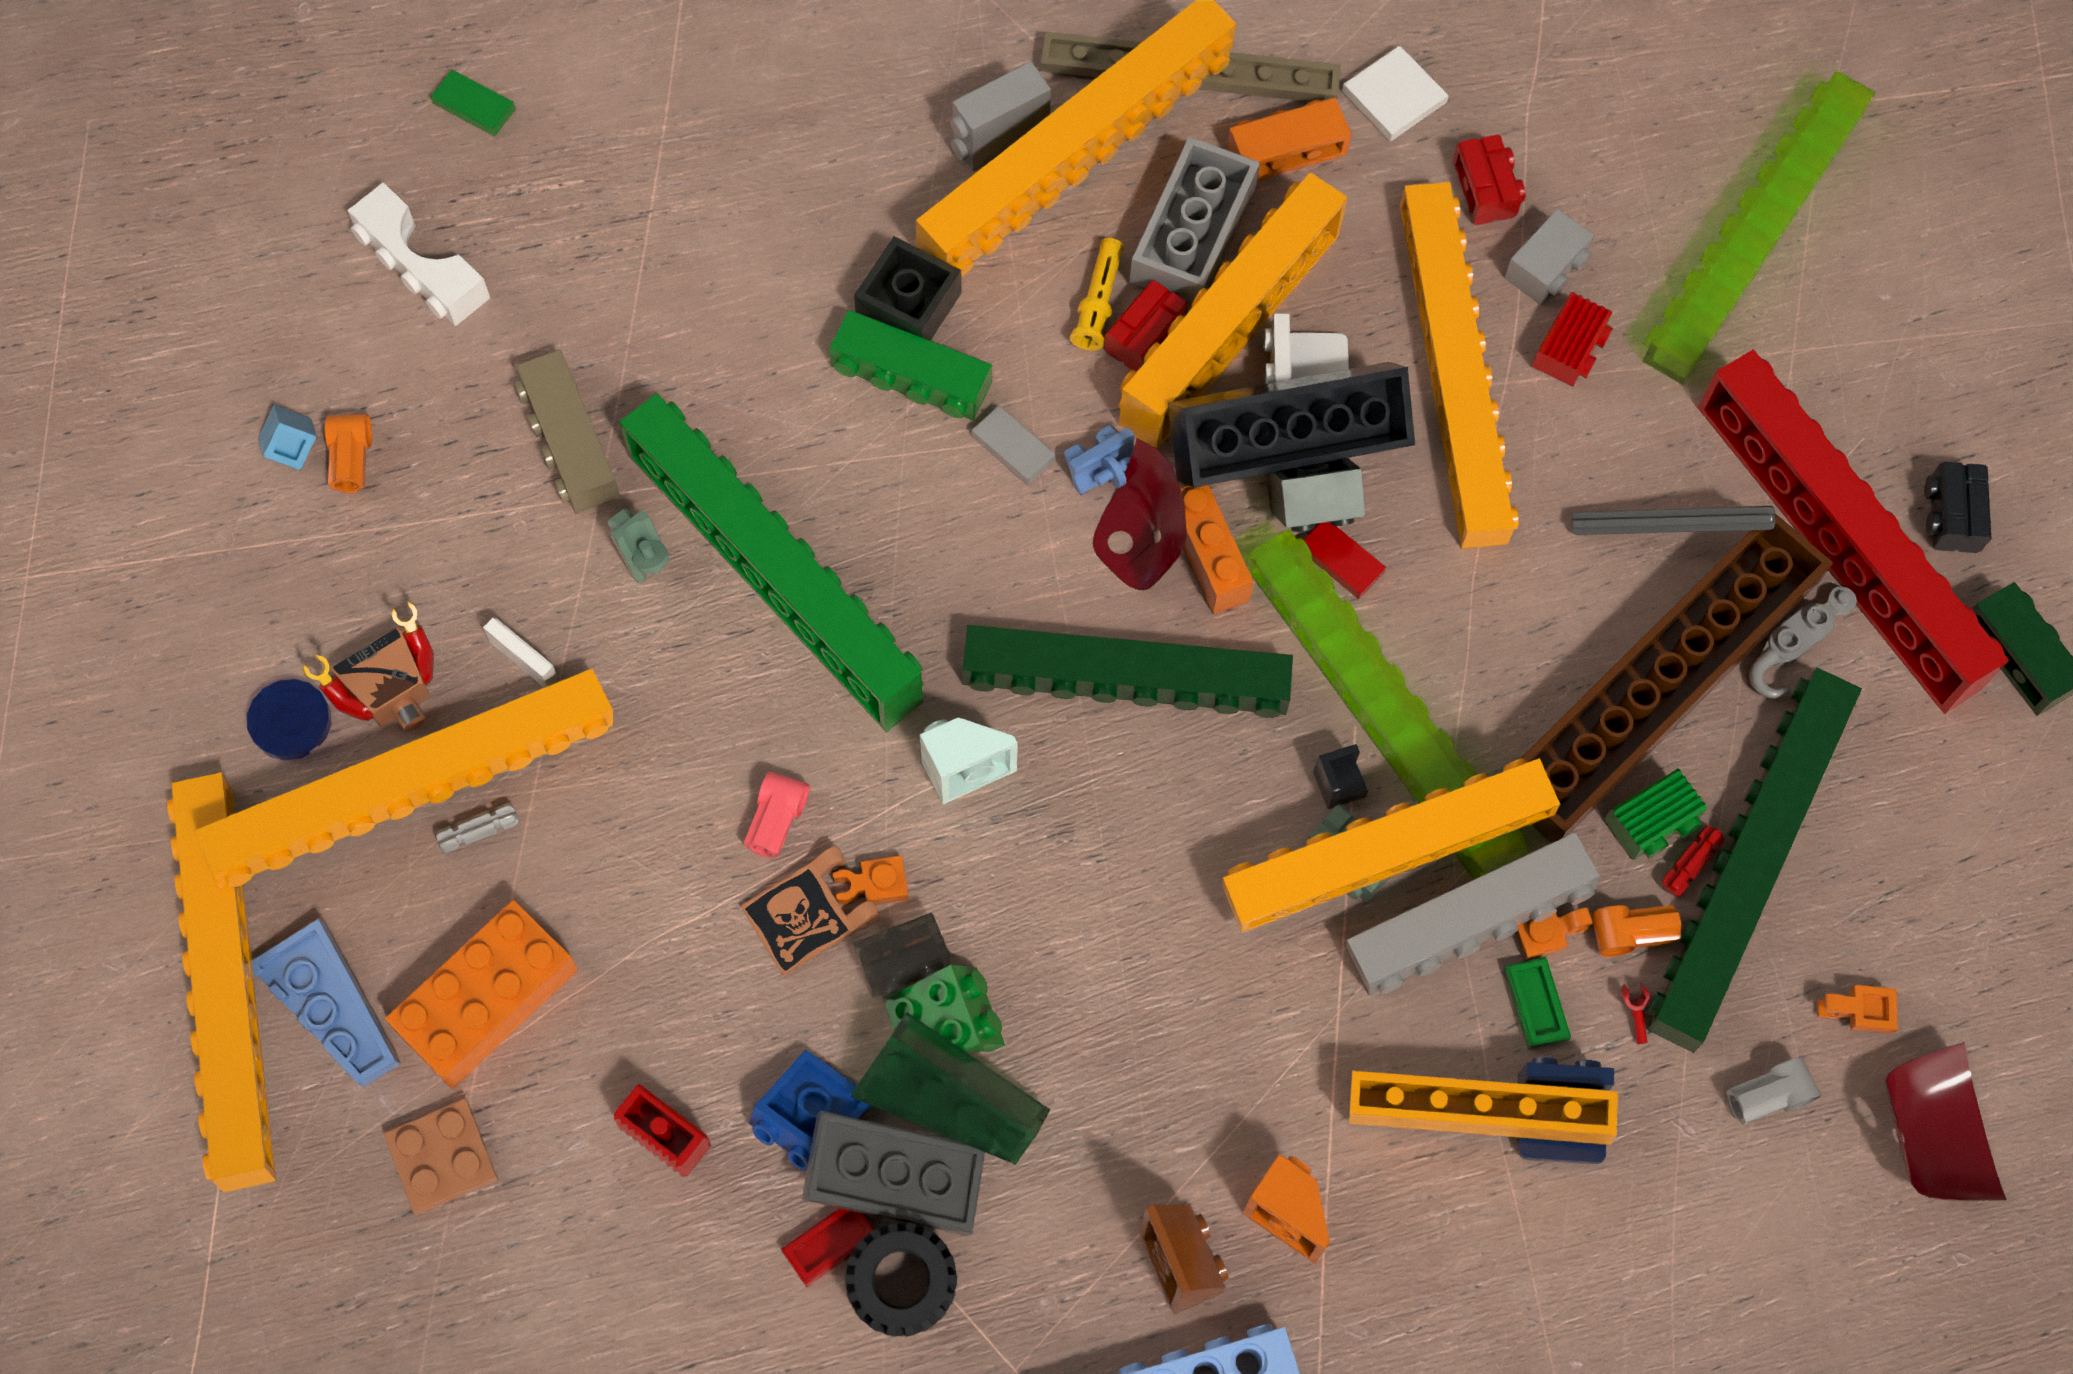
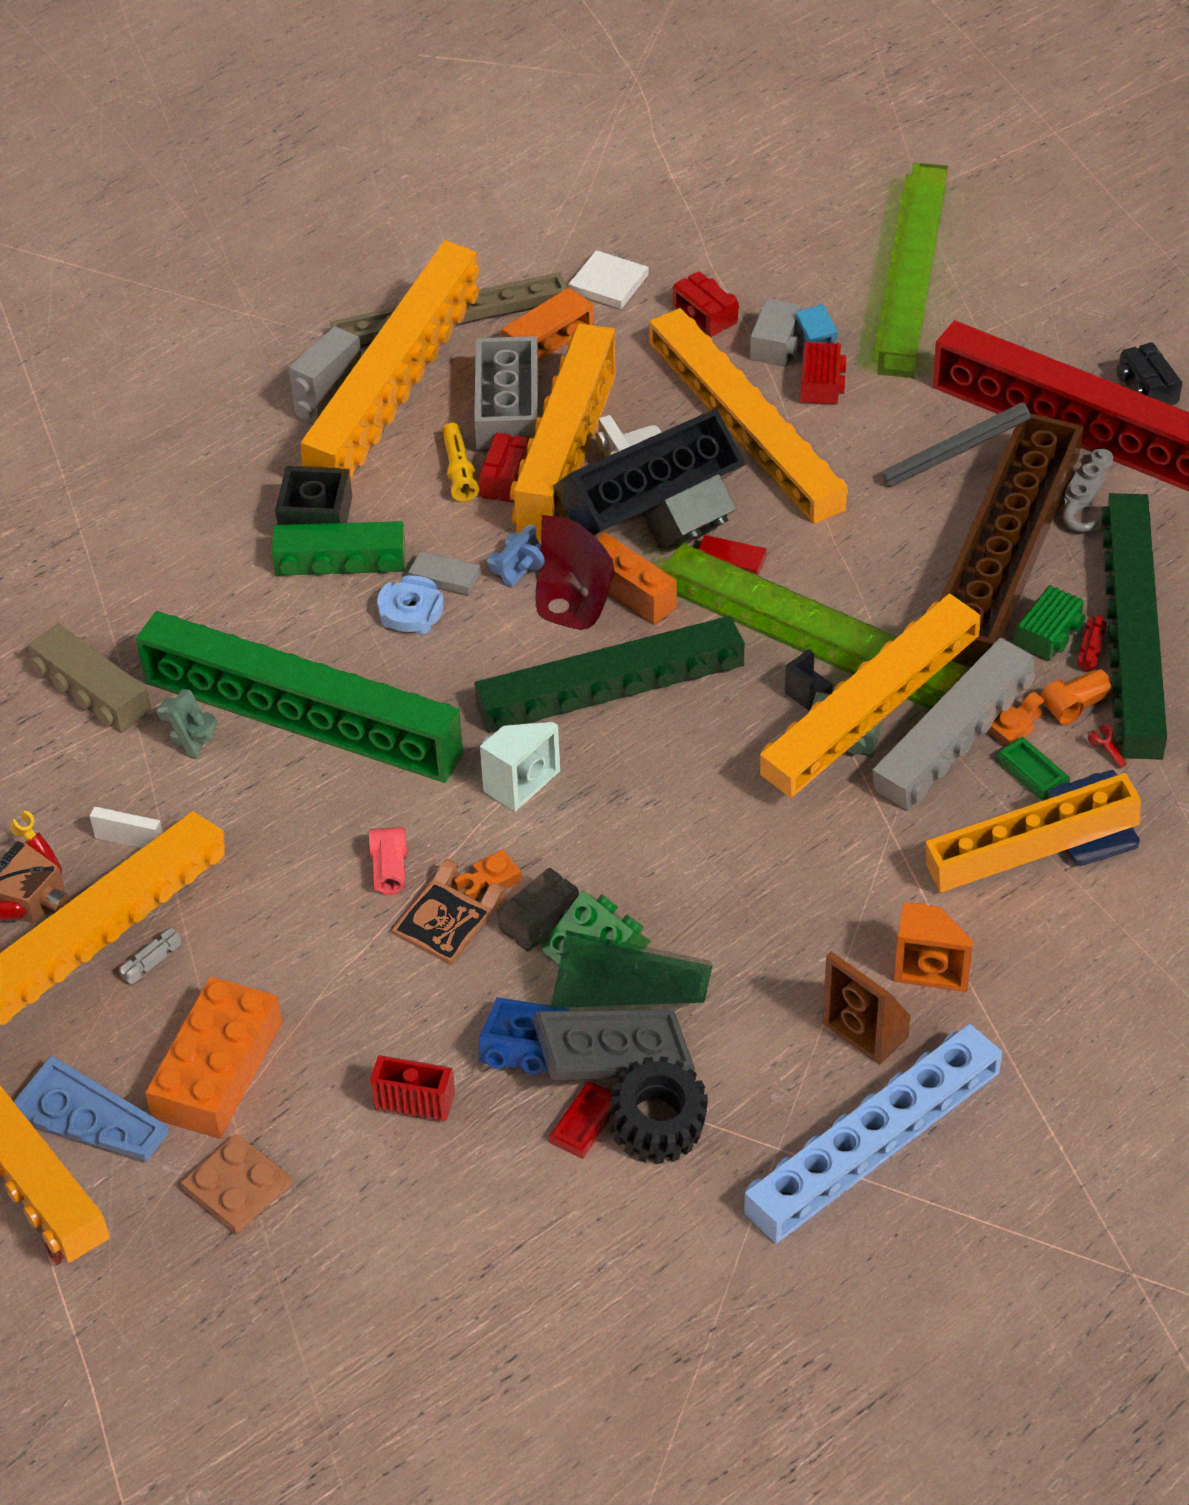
camera: 20 degrees left, 20 degrees down
(961, 496) = (415, 618): none -> light blue plate
(1597, 274) = (817, 325): none -> dark azure panel

